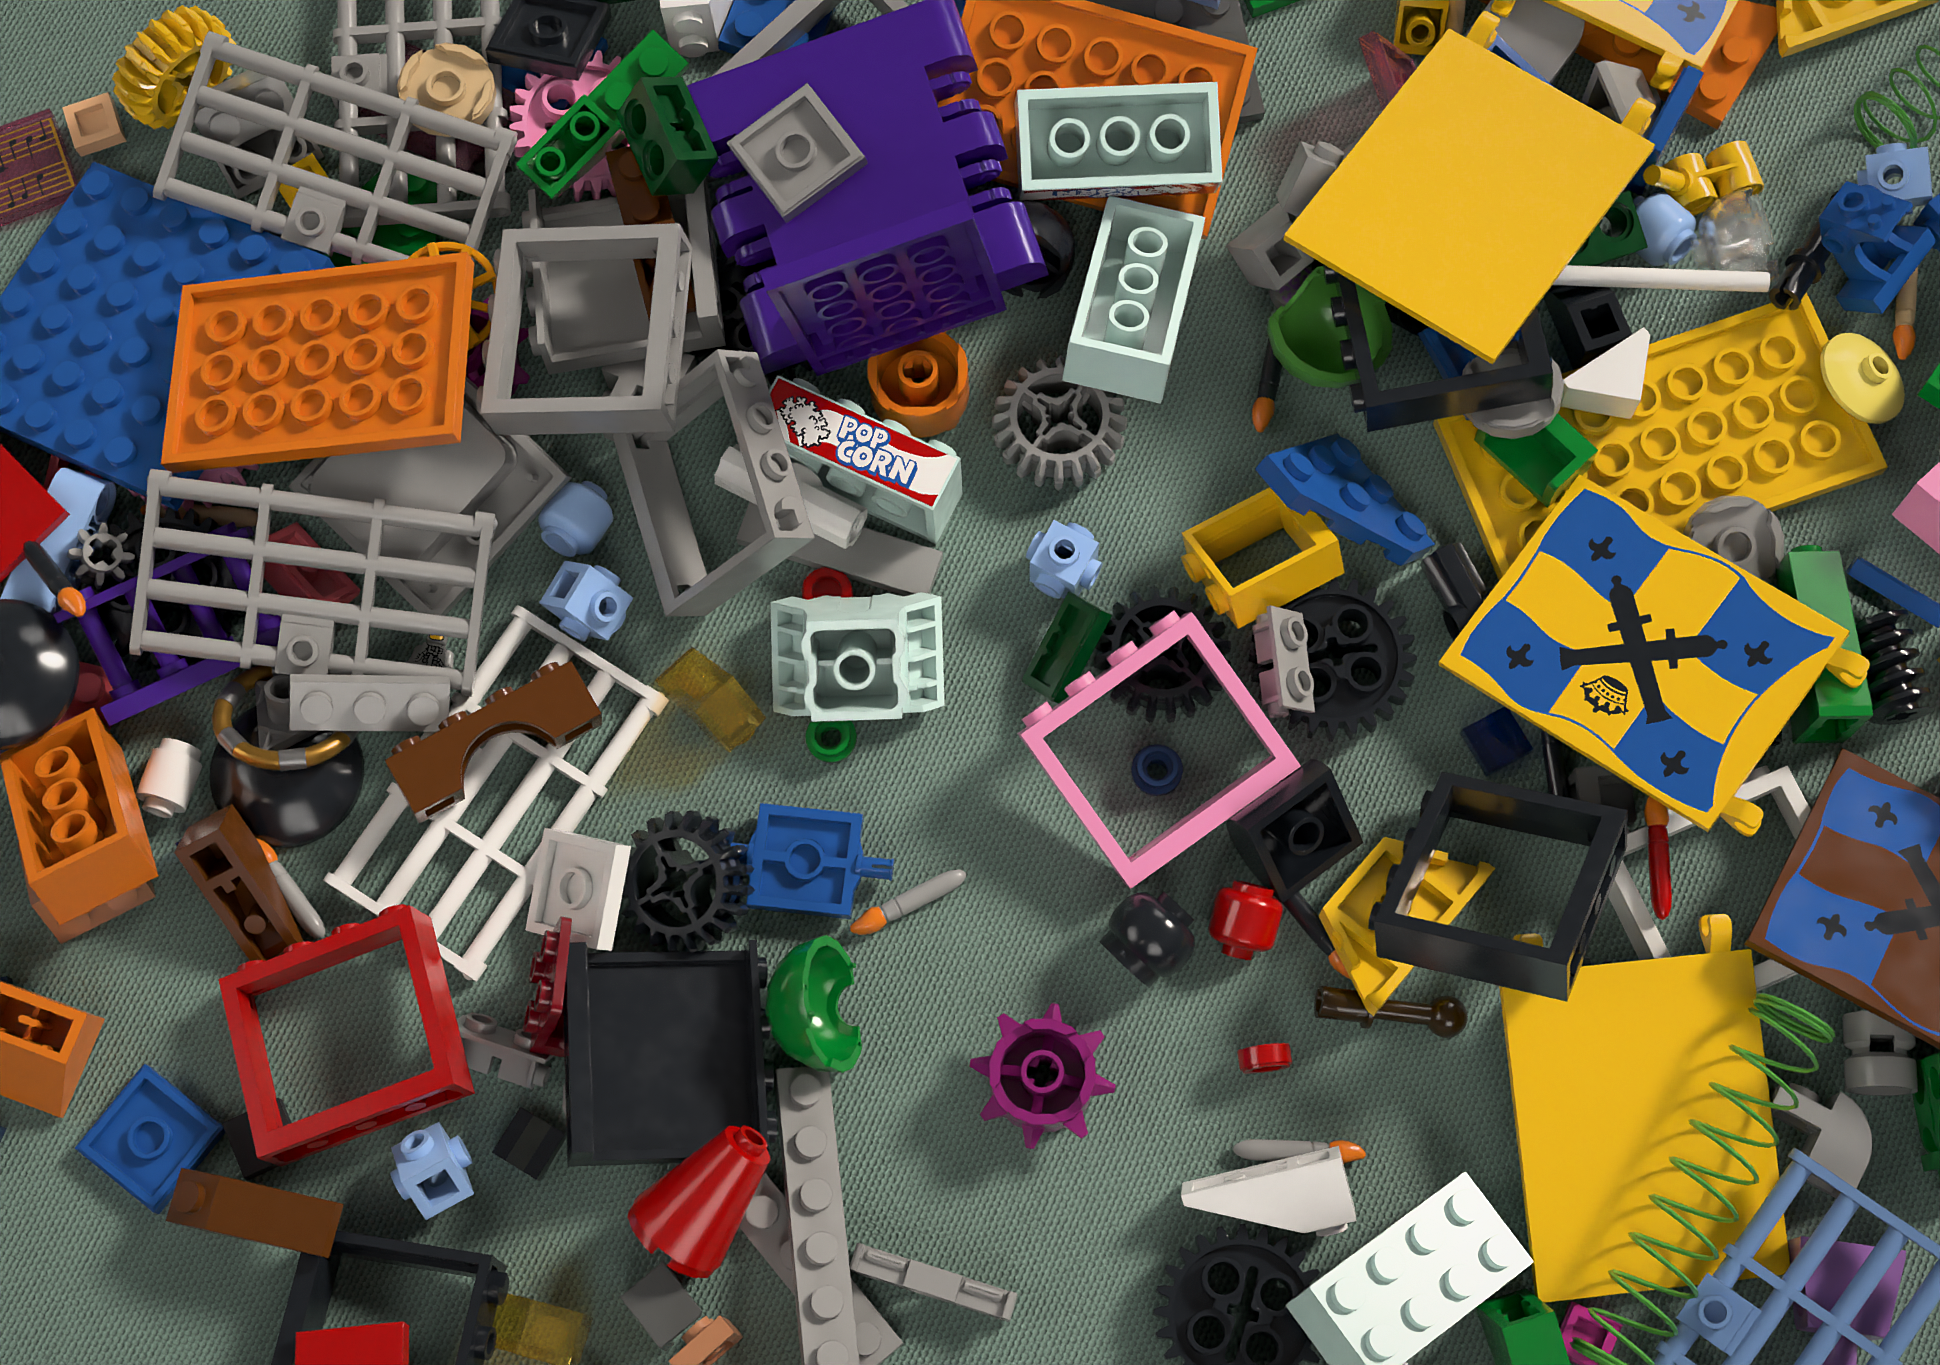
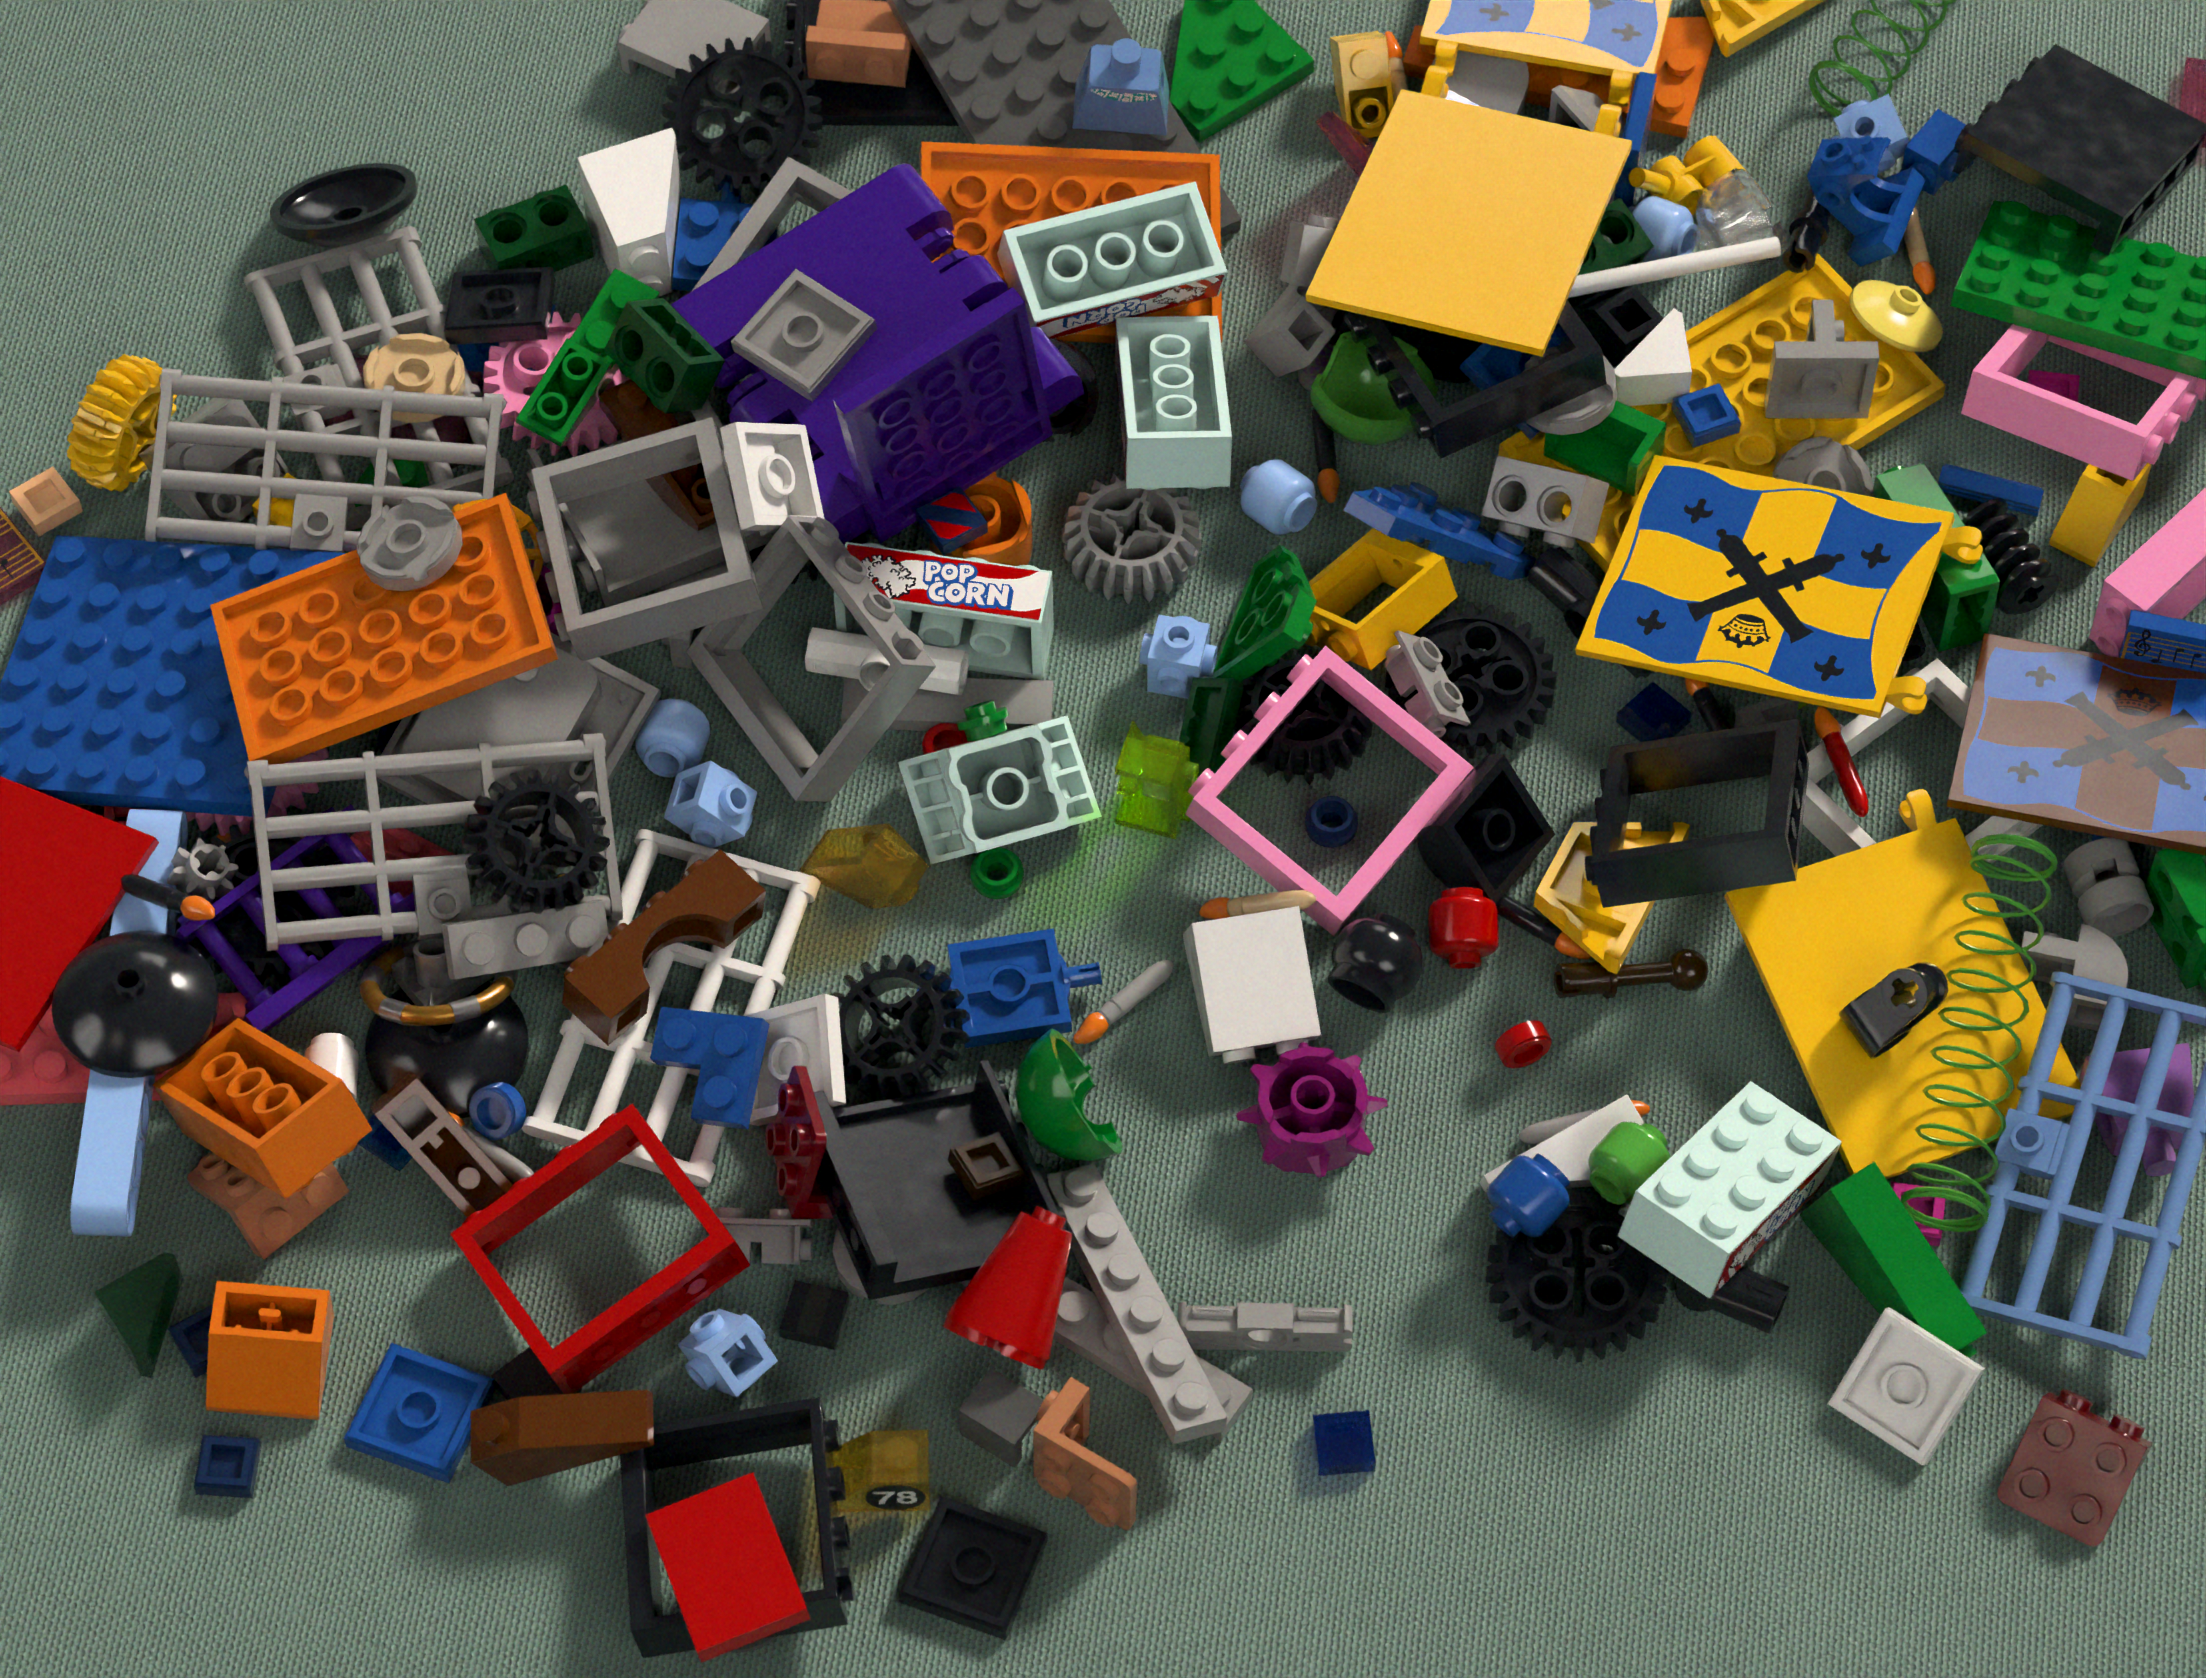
camera: 20 degrees left, 15 degrees down
(305, 857) = (497, 1110): none -> blue tile
(365, 281) = (409, 543): none -> light grey tile
(374, 654) = (516, 839): none -> black gear
(521, 869) = (724, 1050): none -> blue plate
(715, 301) = (770, 474): none -> white plate
(721, 1050) = (986, 1166): none -> dark brown tile
(861, 582) = (983, 720): none -> green plate
(886, 374) = (951, 520): none -> dark blue tile
(997, 693) = (1154, 783): none -> clear neon green window
(1027, 924) = (1252, 983): none -> white slope
(1057, 843) = (1225, 907): none -> tan piece
(1156, 551) = (1268, 617): none -> green plate
(1208, 417) = (1278, 497): none -> light blue head
(1212, 1239) = (1528, 1196): none -> blue head
(1320, 1233) = (1626, 1160): none -> bright green head
(1462, 485) = (1546, 495): none -> light grey brick
(1627, 1144) = (1890, 1011): none -> black piece
(1643, 440) = (1706, 415): none -> blue tile
(1769, 434) = (1822, 373): none -> light grey bracket

